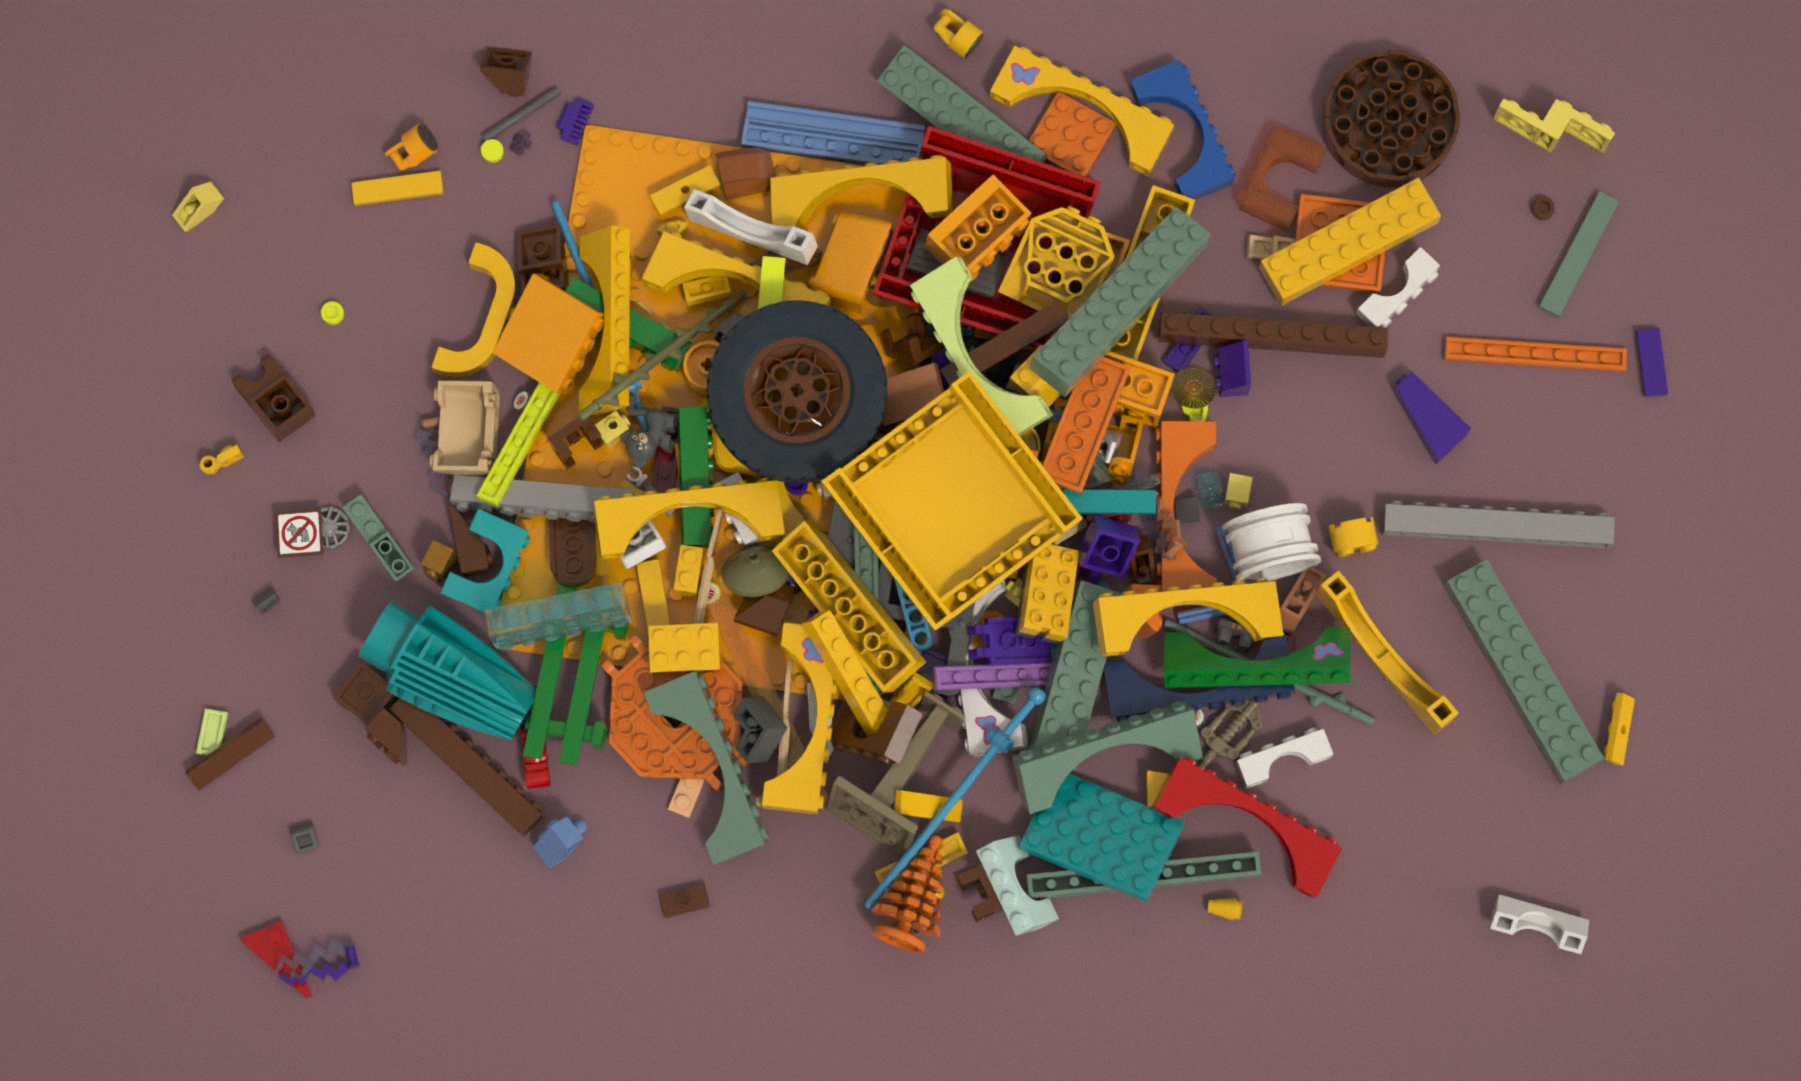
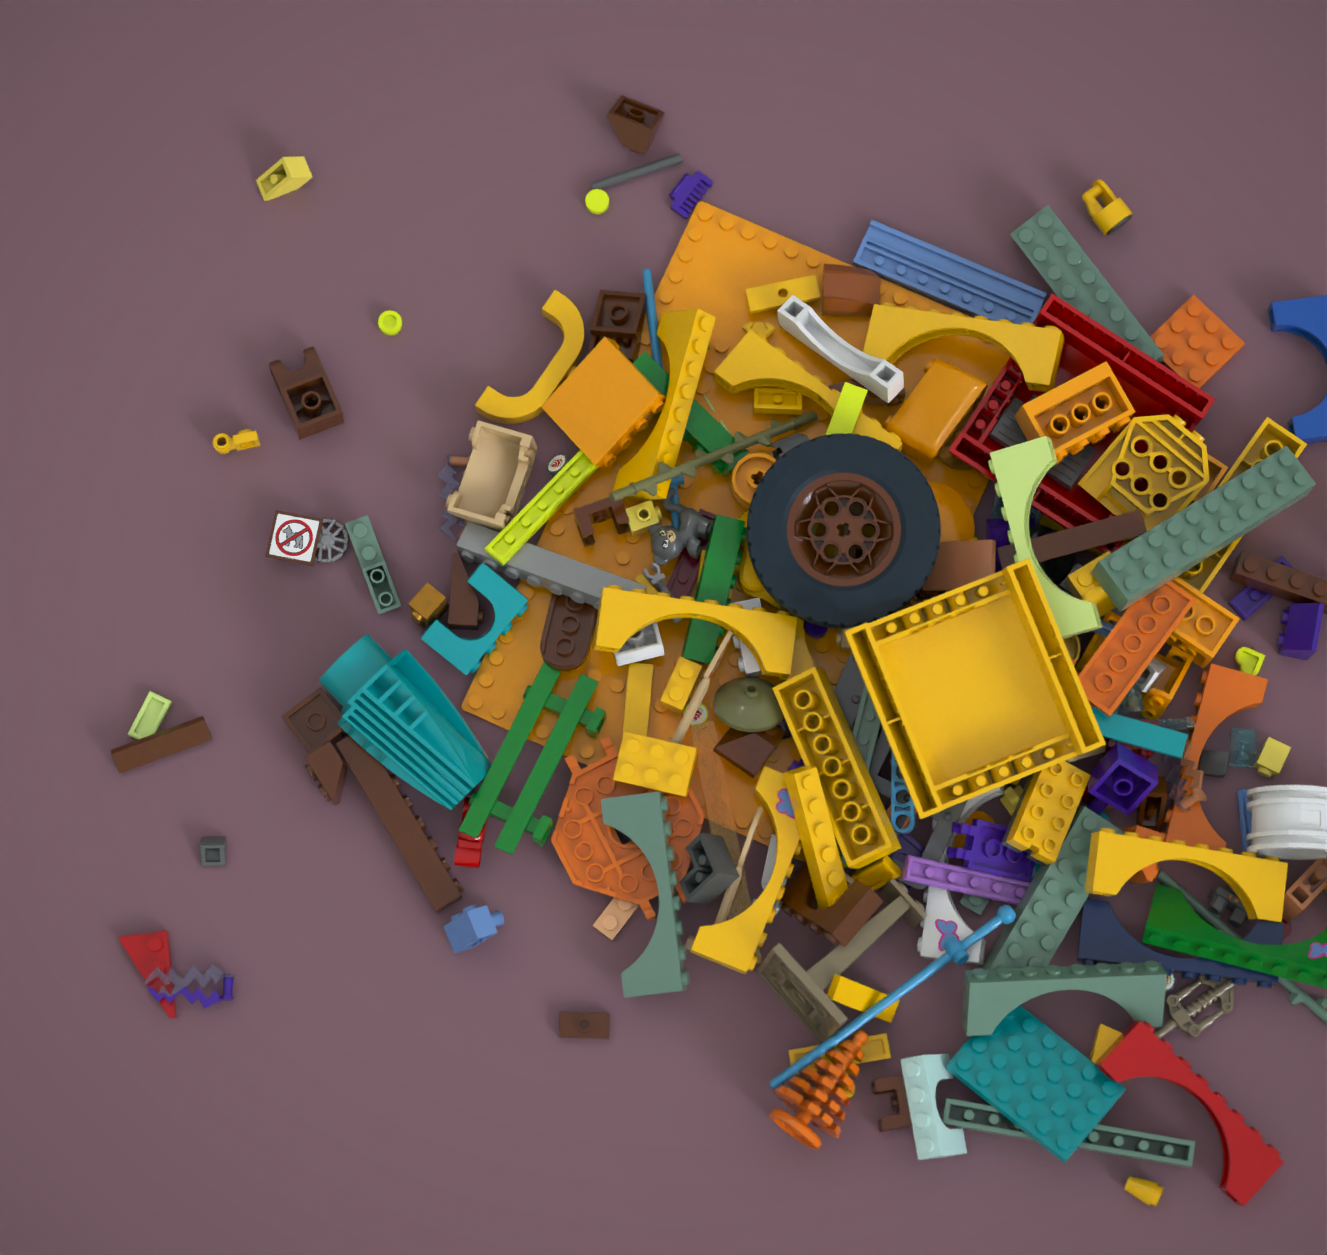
camera: 15 degrees right, 0 degrees up
(265, 601) = (241, 598): dark grey slope -> none
(397, 188) = (490, 213): yellow tile -> none
(418, 143) = (524, 174): light orange piece -> none
(521, 142) = (628, 200): clear purple plant -> none
(558, 616) = (534, 696): clear light blue brick -> none
(914, 346) = (974, 517): reddish brown panel -> none
(1029, 75) = (1169, 271): yellow arch -> none
(1195, 379) = (1260, 631): clear yellow dish -> none
(1197, 614) = (1195, 874): medium blue axle -> none
(1312, 748) = (1278, 1047): white arch -> none

